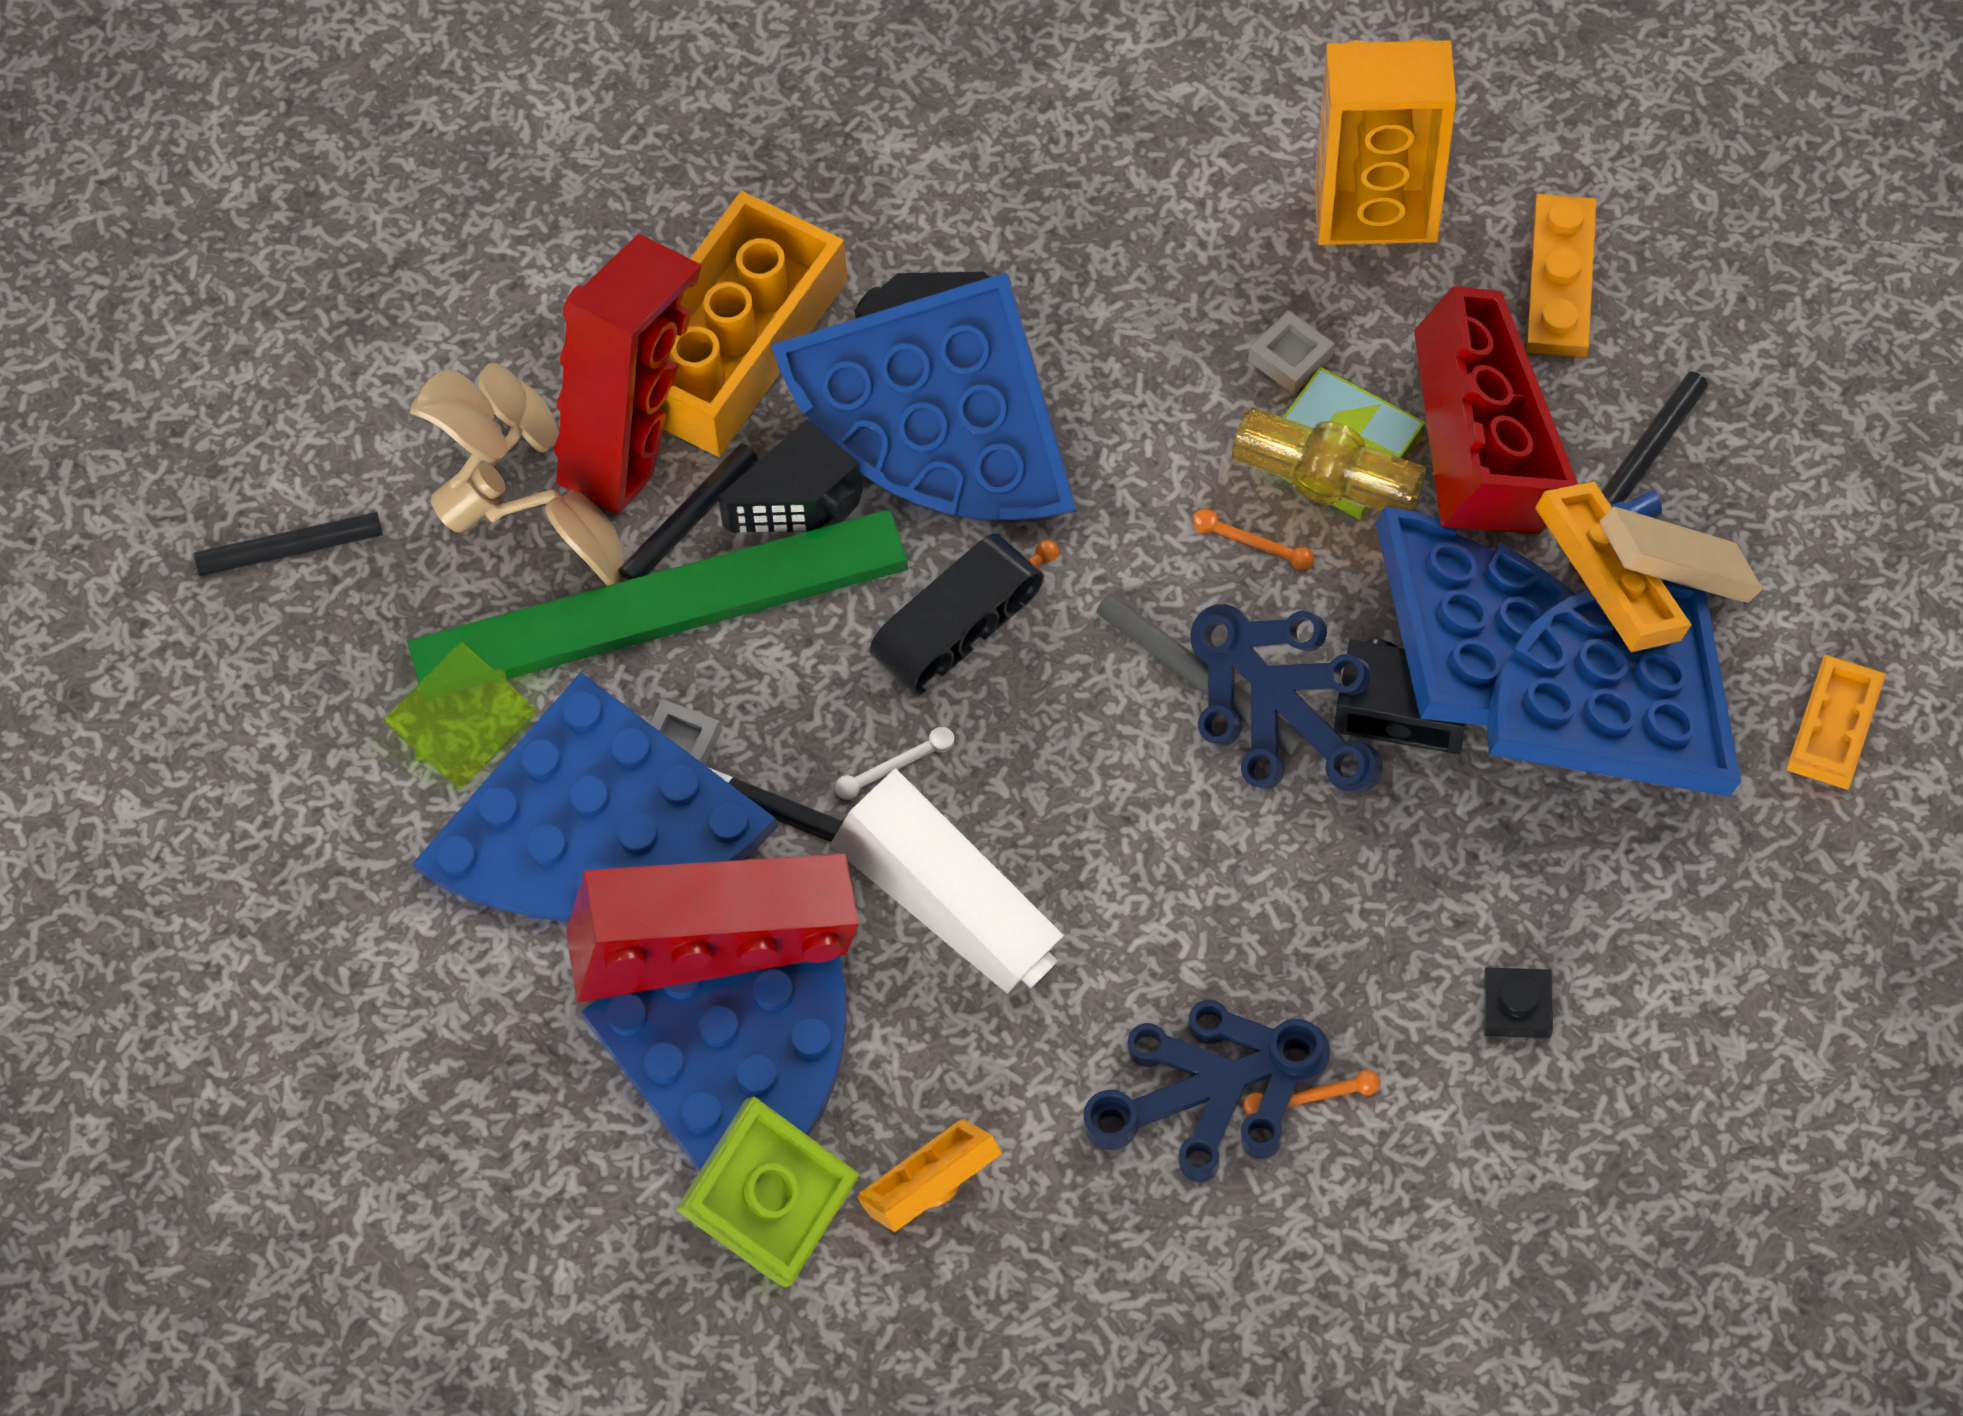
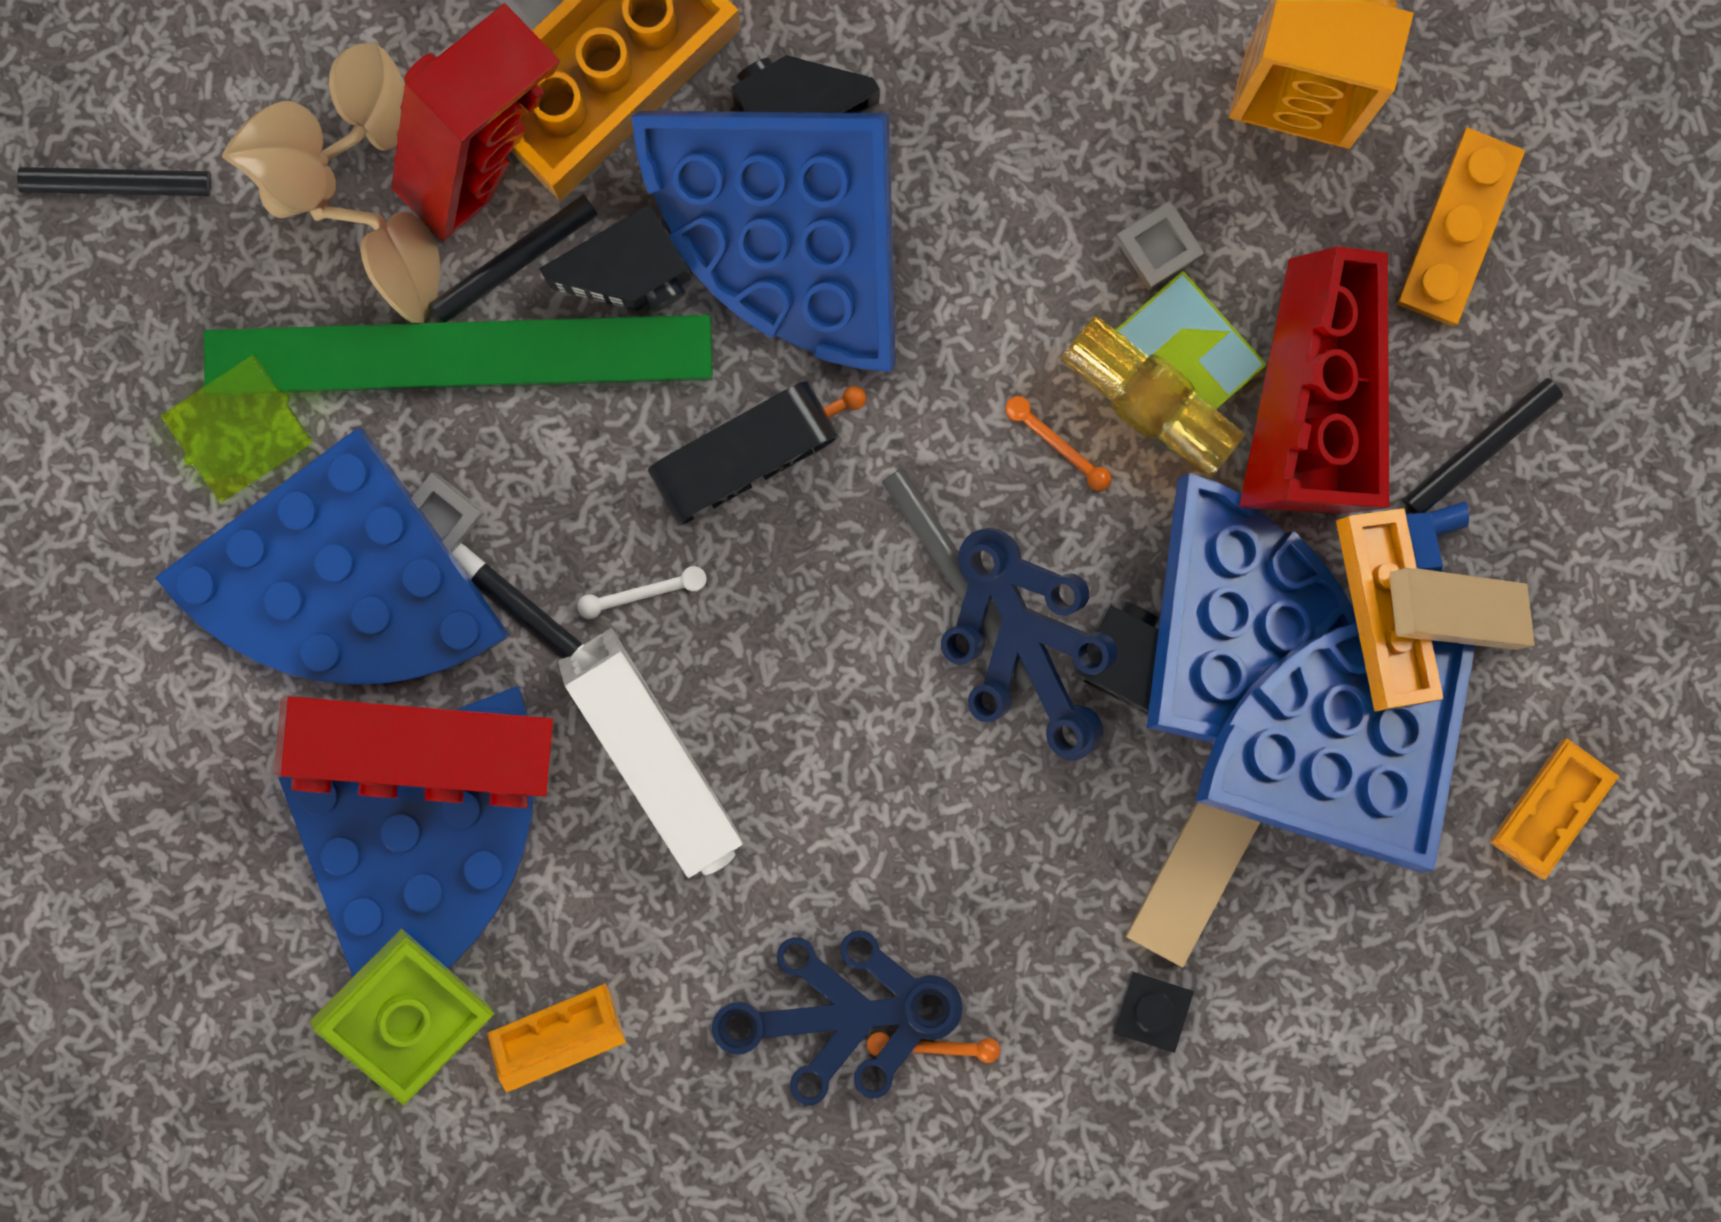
camera: 10 degrees right, 25 degrees up
(1517, 858) = (1191, 882): none -> tan tile

